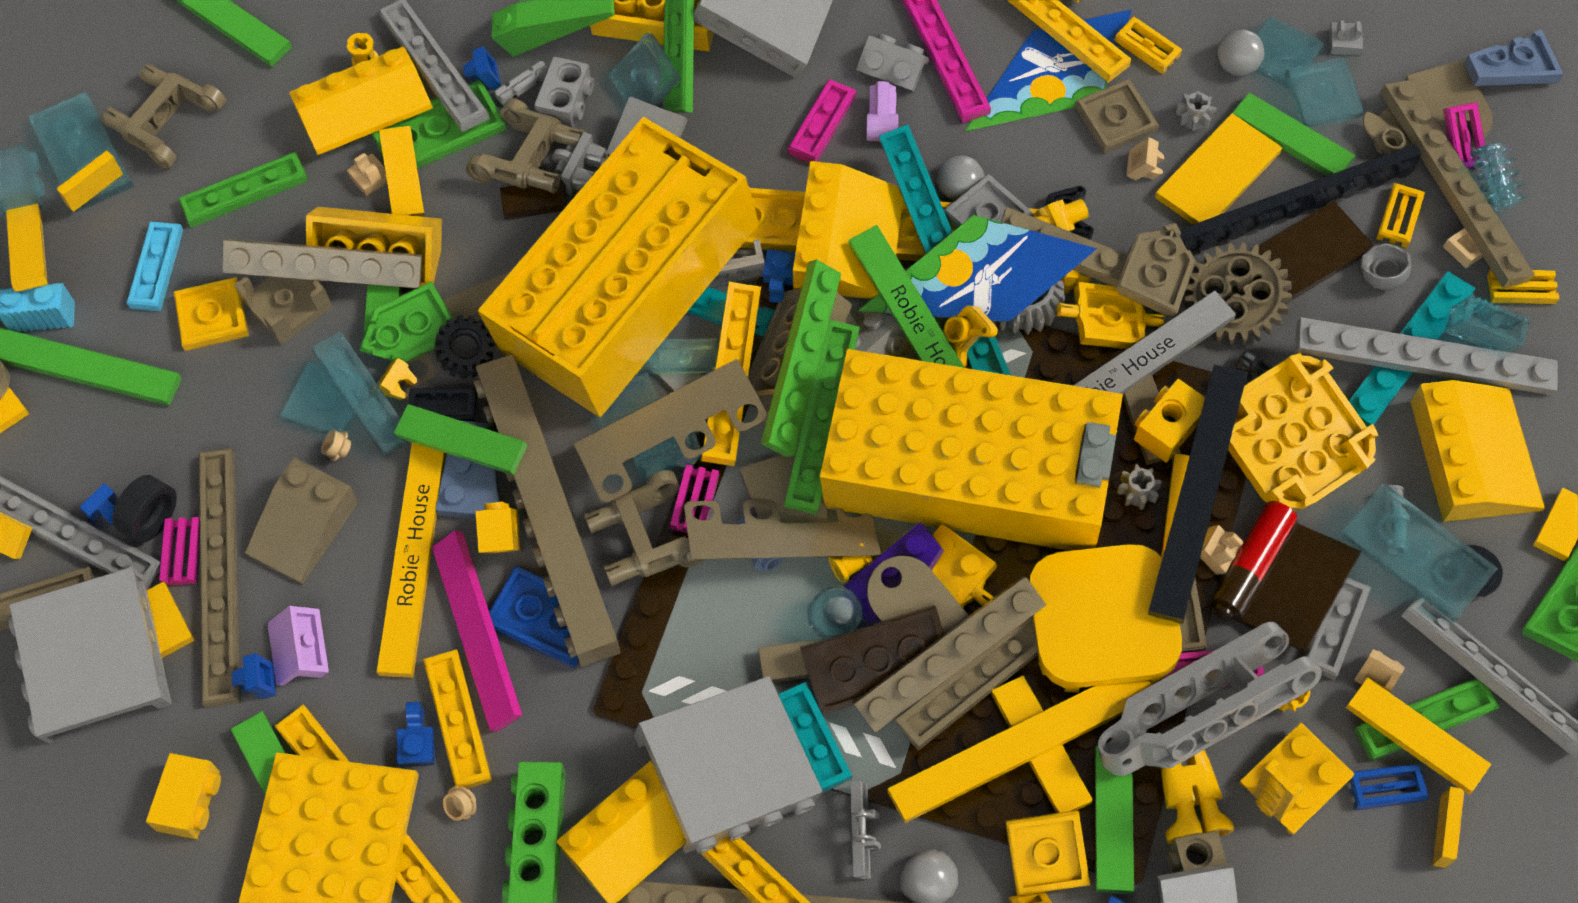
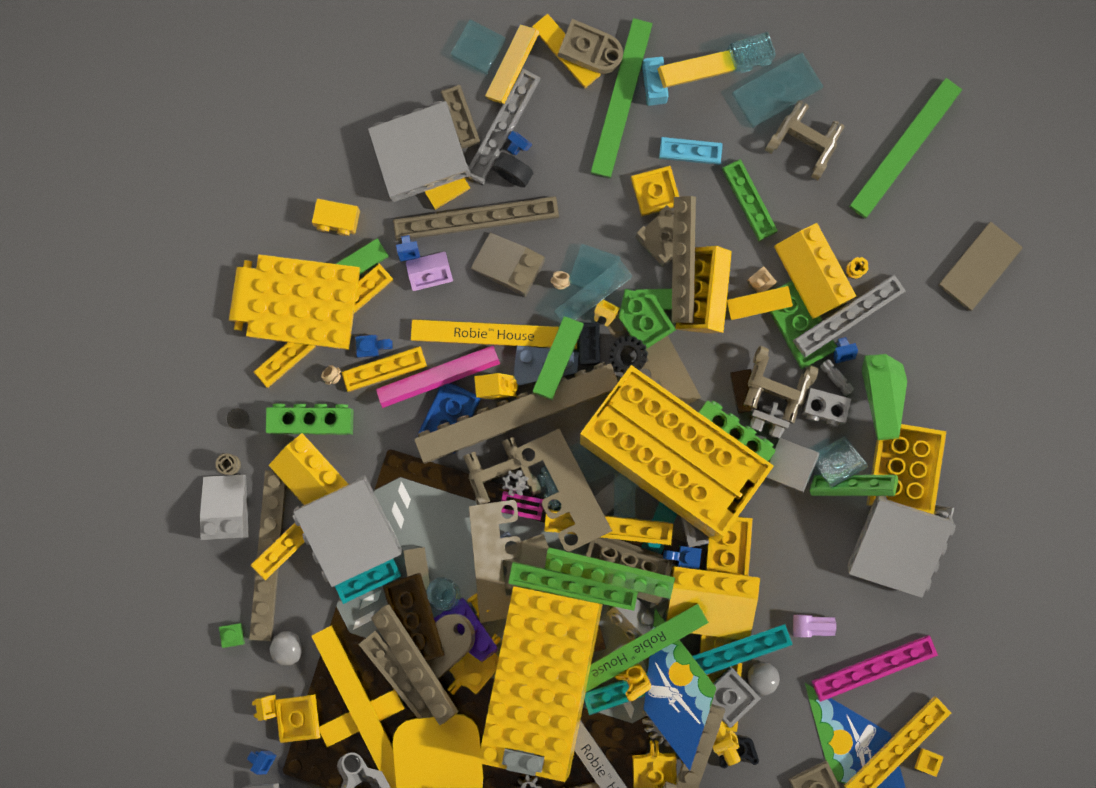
camera: 85 degrees right, 20 degrees up
(89, 181) = (747, 101): yellow tile -> none
(167, 551) = (473, 187): dark pink tile -> none
(648, 500) = (520, 485): none -> light grey gear
(822, 121) = (809, 584): dark pink tile -> none
(860, 841) = (319, 609): light grey piece -> none
(891, 62) = (858, 633): light grey bracket -> none
(1113, 831) = (309, 758): bright green tile -> none

